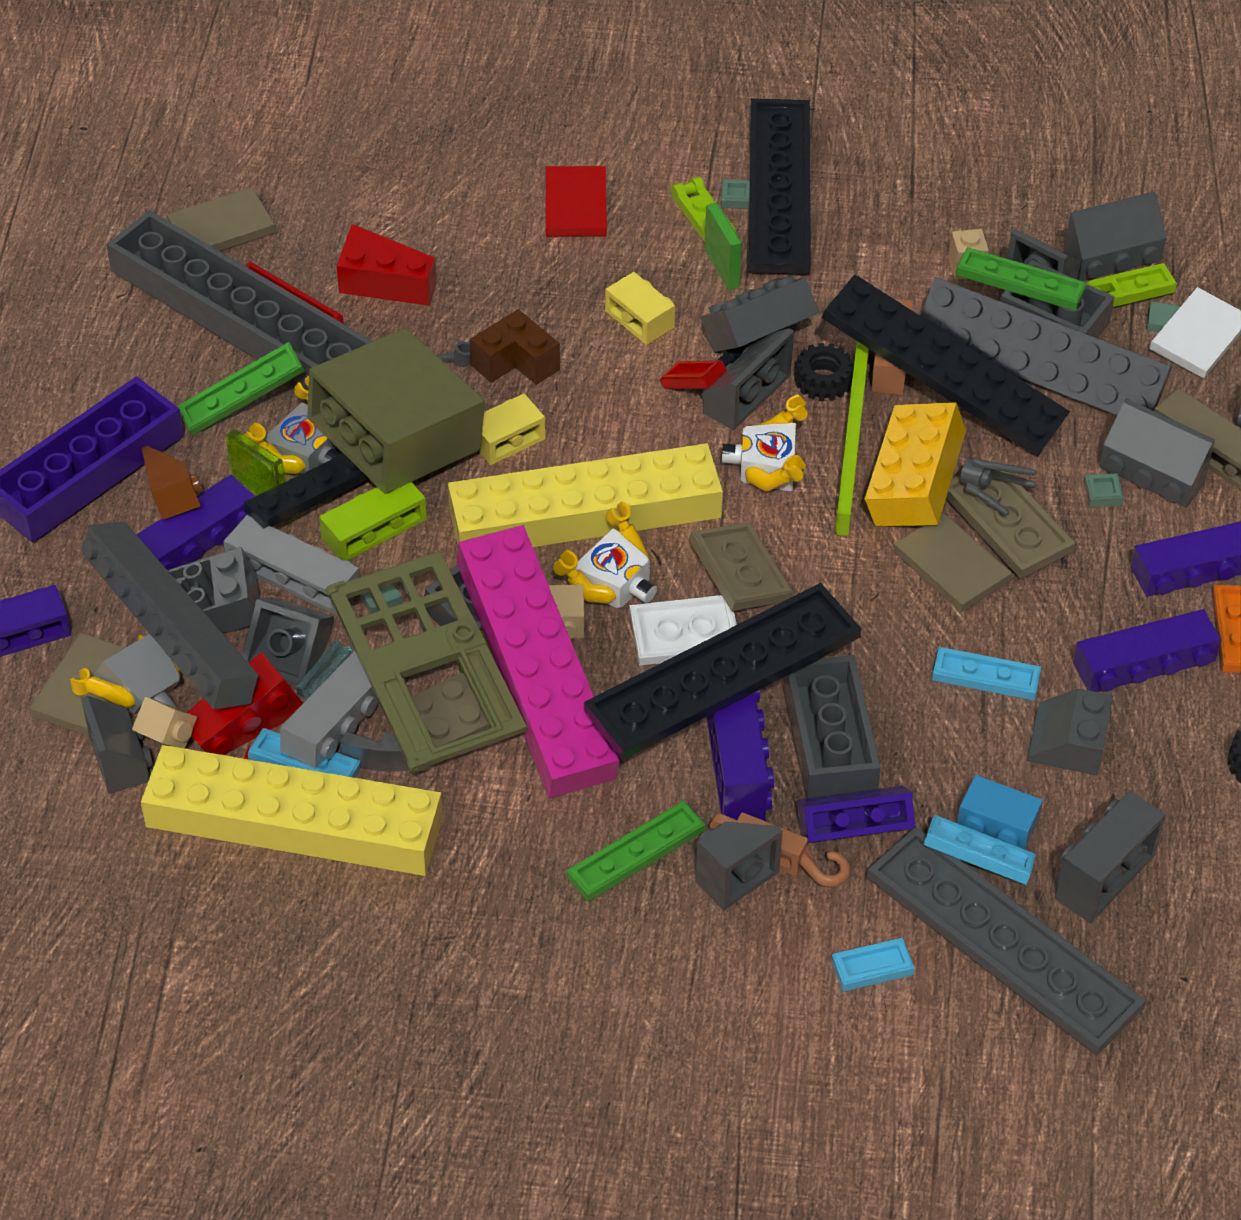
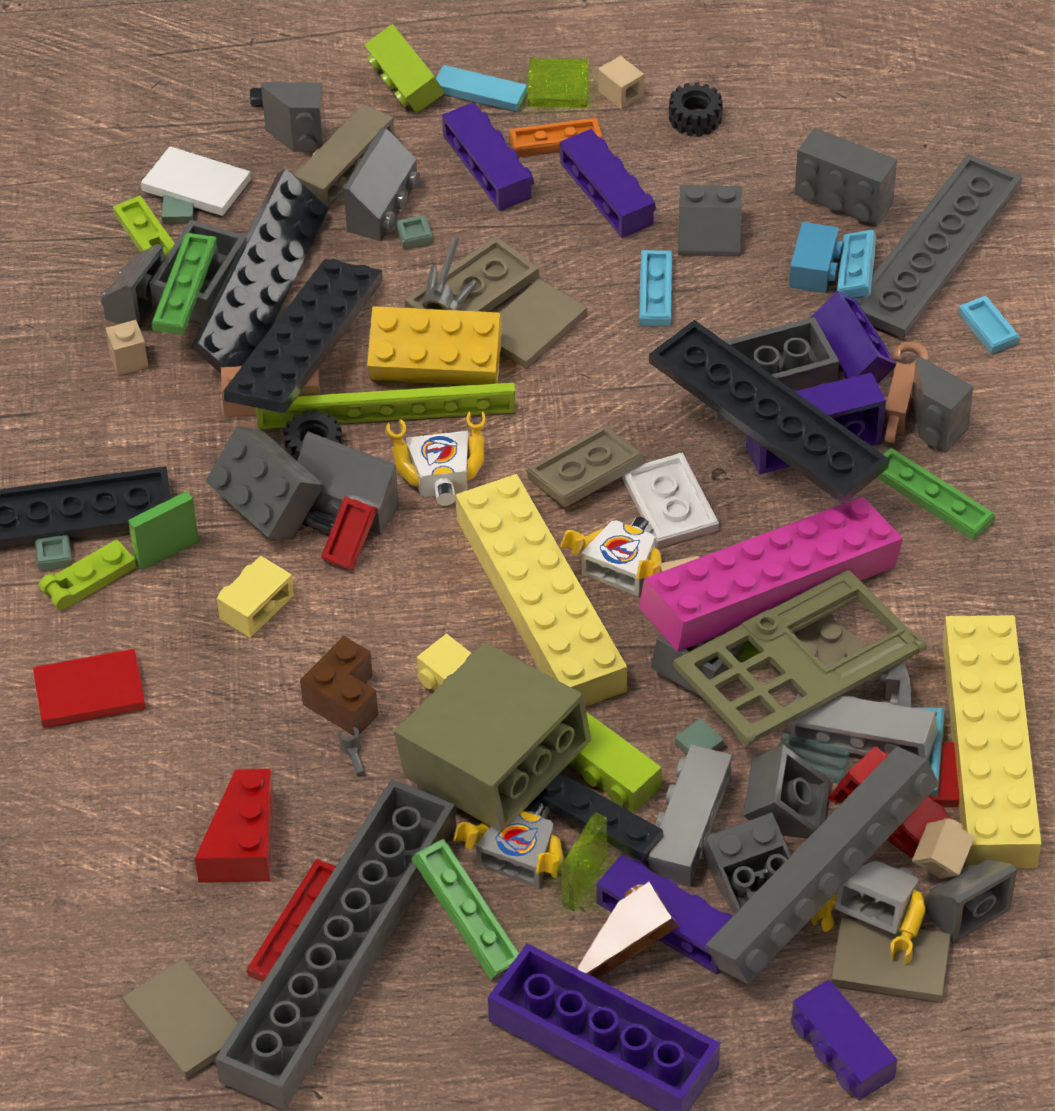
camera: 100 degrees left, 0 degrees up
(1116, 236) = (90, 238): dark grey slope -> none

